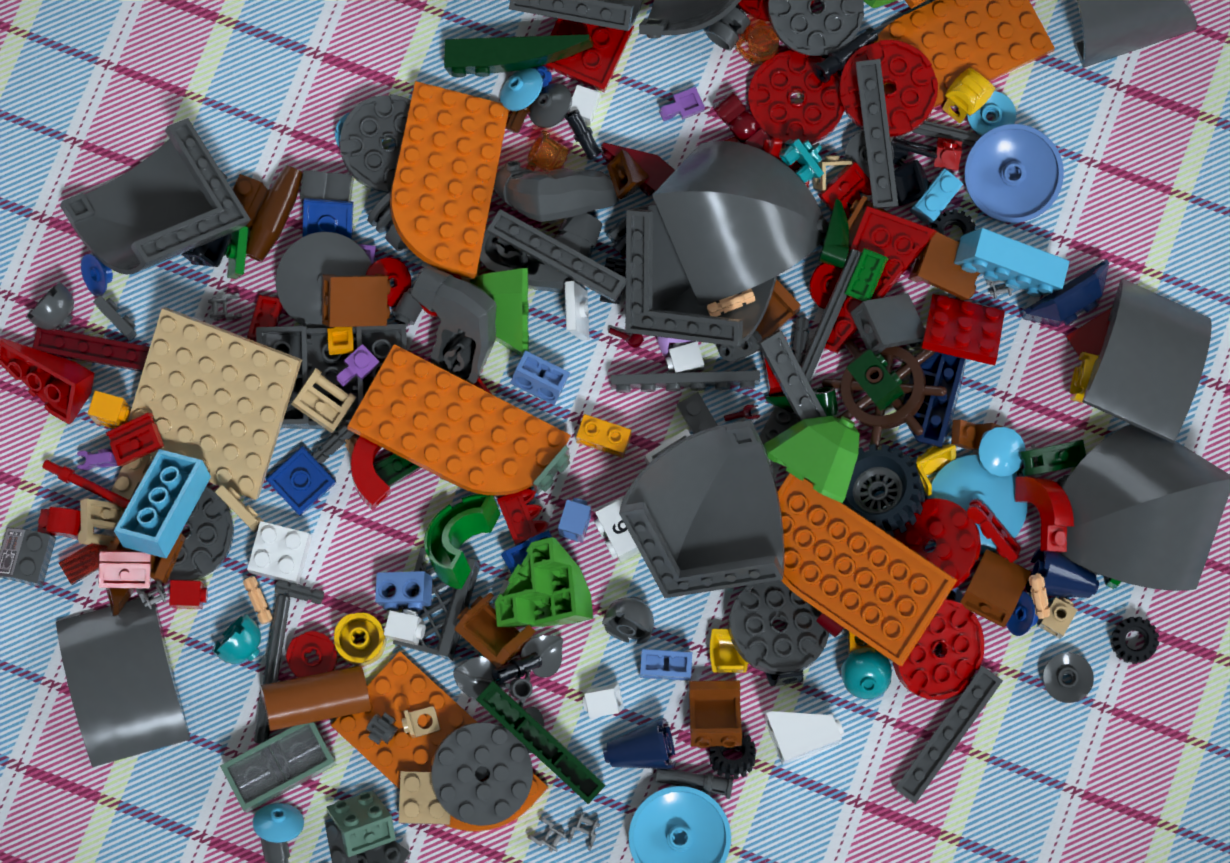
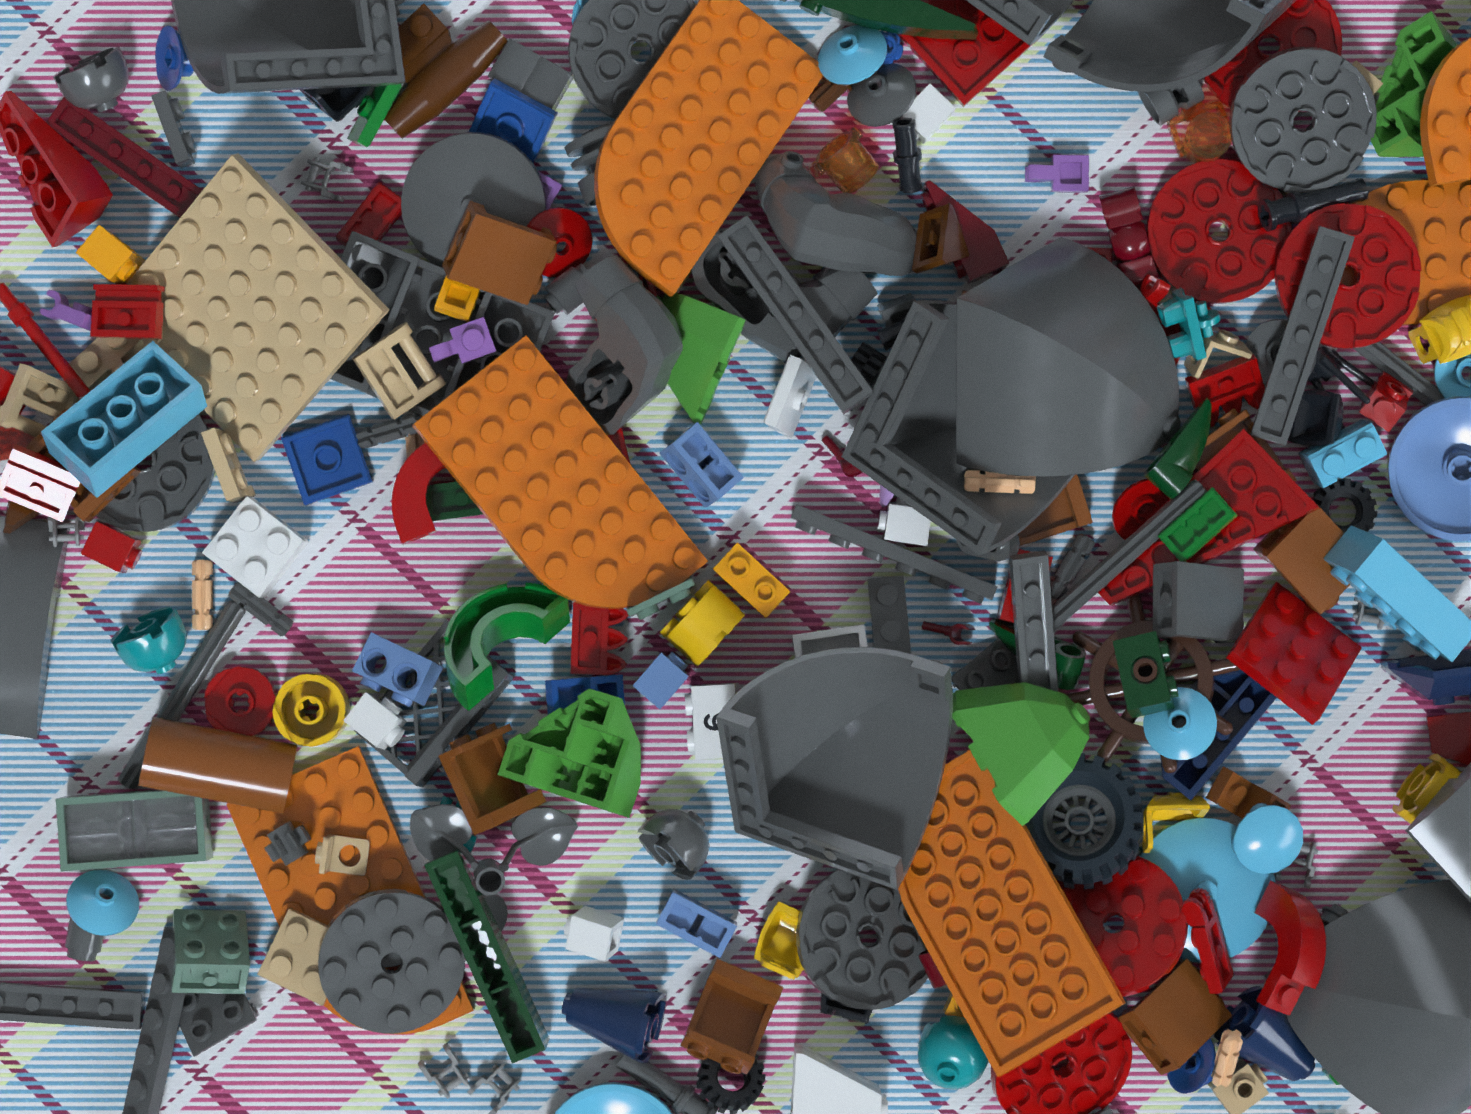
camera: 20 degrees right, 10 degrees up
(516, 668) = (498, 843): black pin -> none
(584, 474) = (702, 623): none -> yellow brick
(921, 408) = (1190, 739): none -> medium azure dish
(1053, 457) = (1333, 877): dark green plate -> none

